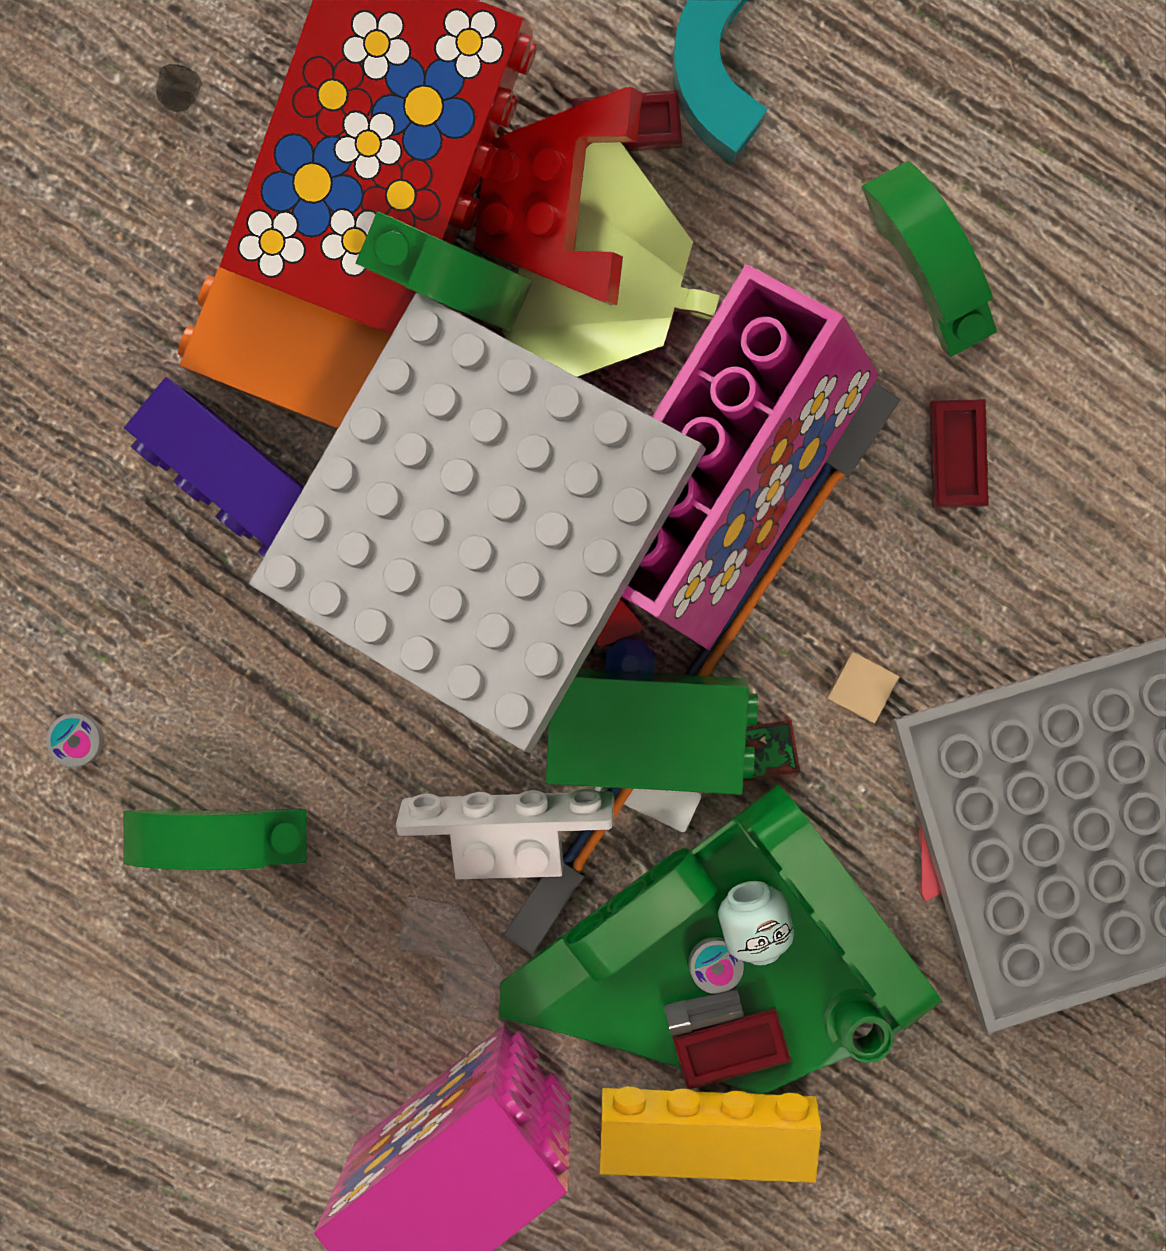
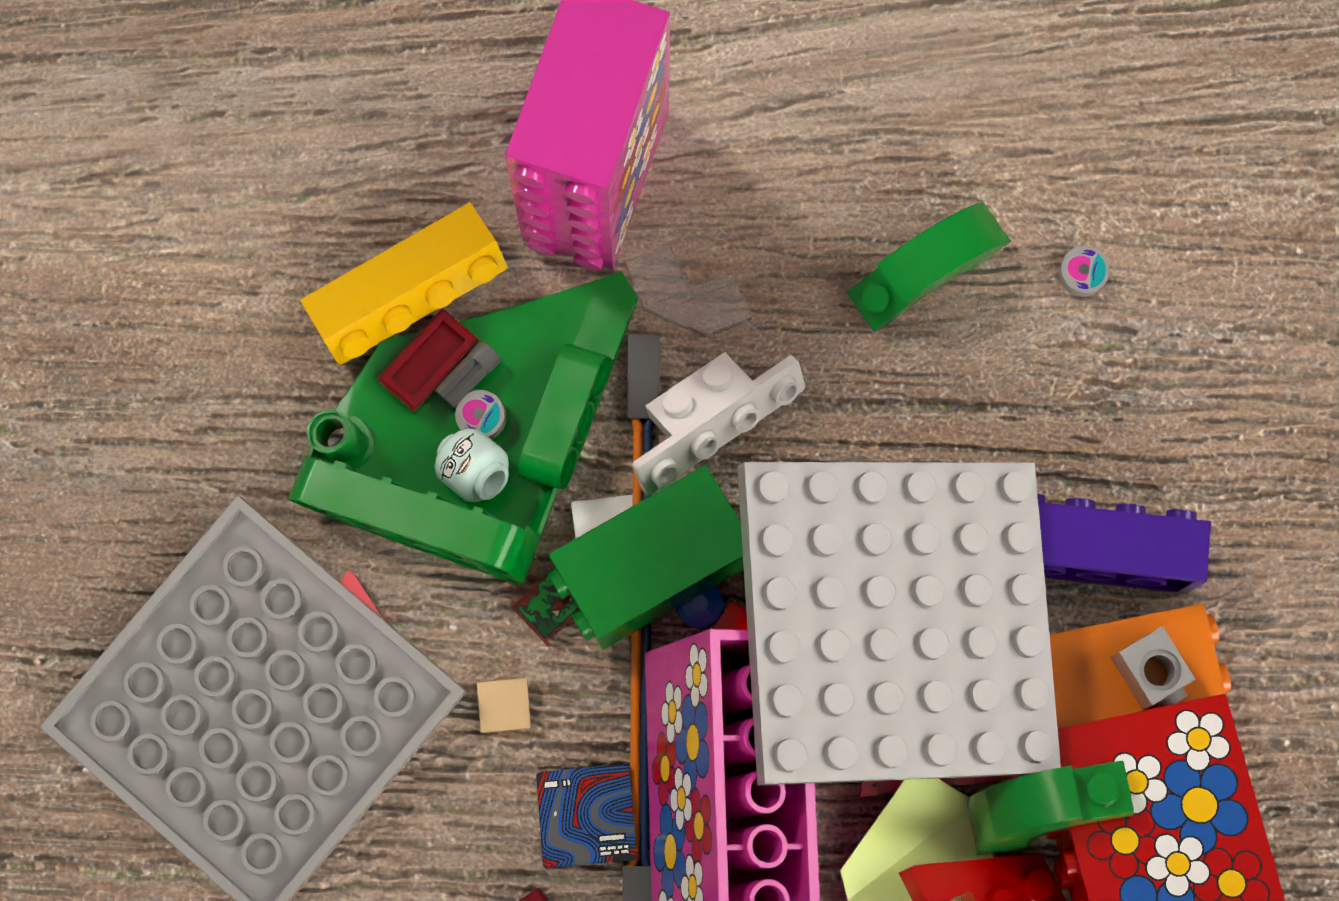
camera: 145 degrees right, 10 degrees down
(277, 355) = (1159, 647): none -> light grey brick
(852, 542) = (586, 816): none -> sticker

